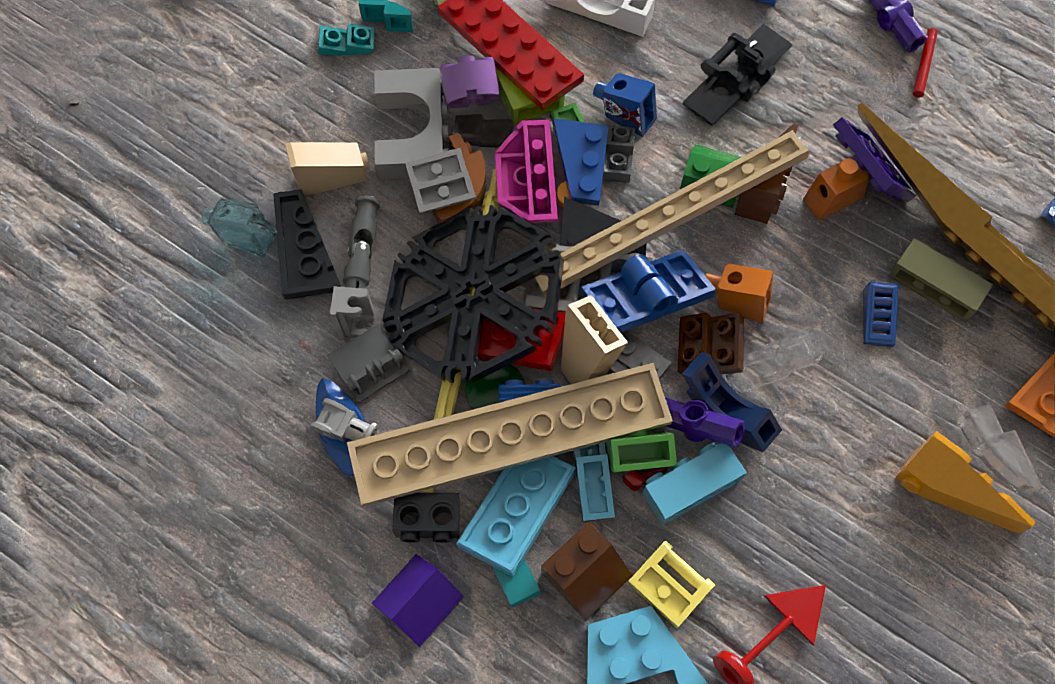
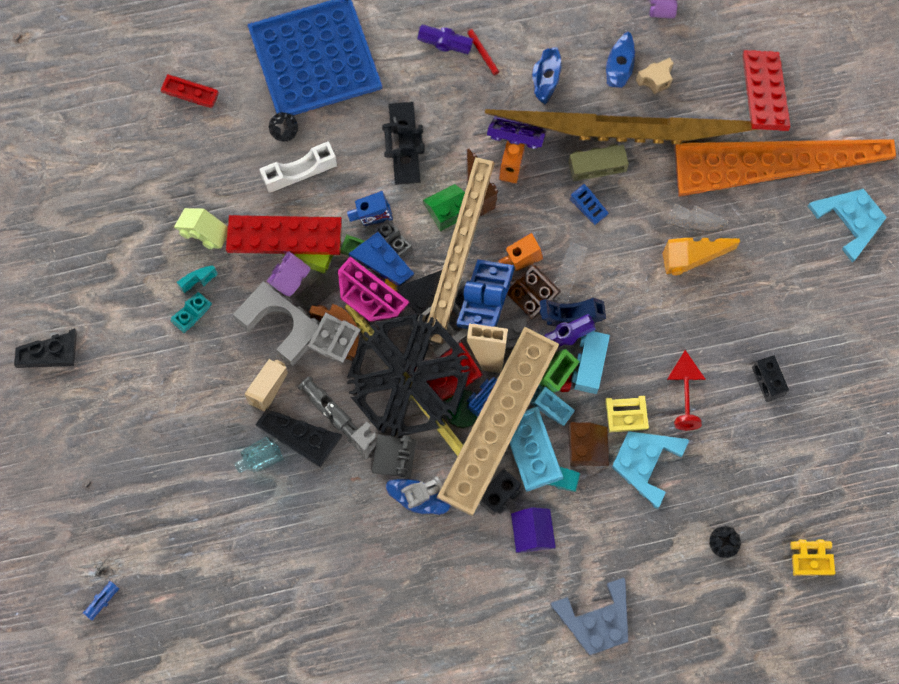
camera: 50 degrees left, 5 degrees up
(960, 148) = (549, 62): none -> blue piece

